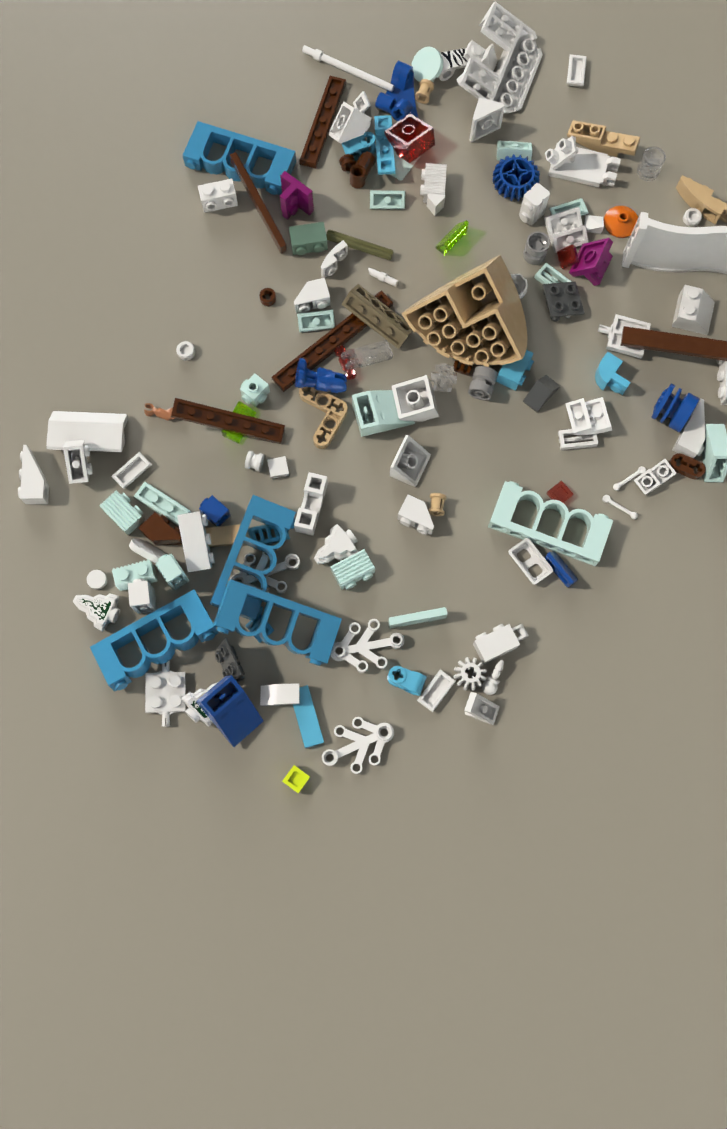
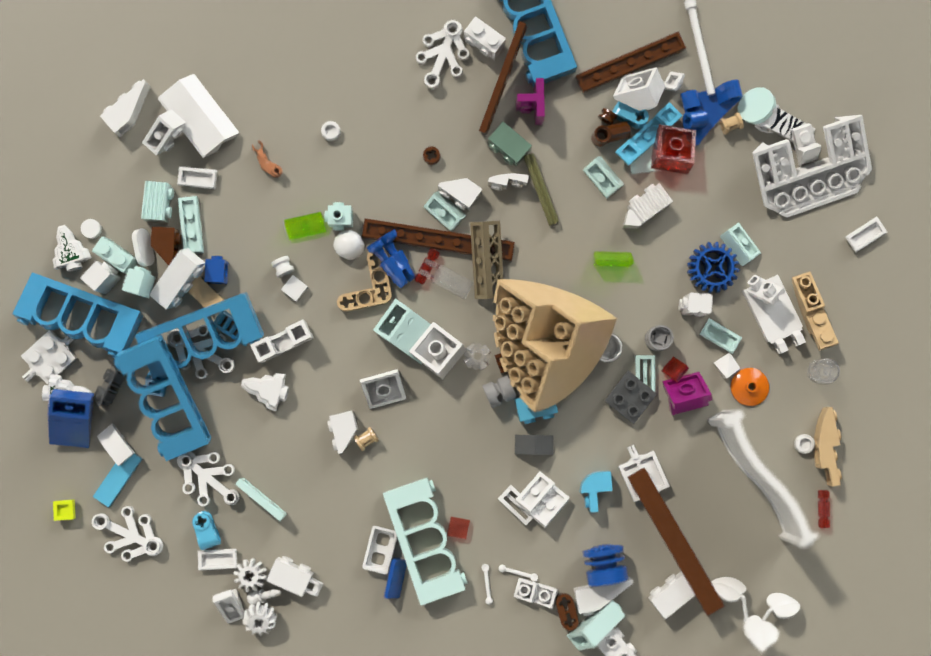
camera: 50 degrees right, 10 degrees up
(201, 231) = (444, 52): none -> white plant
(227, 421) = (294, 218): reddish brown tile -> none
(280, 403) = (349, 244): none -> white hair
(353, 570) = (258, 417): light aqua brick -> none
(381, 276) = (528, 232): white piece -> none
(486, 118) = (744, 197): white slope -> none
(504, 697) = (259, 618): none -> white gear
(566, 229) = (699, 348): white slope -> none
(693, 310) = (713, 512): white slope -> none

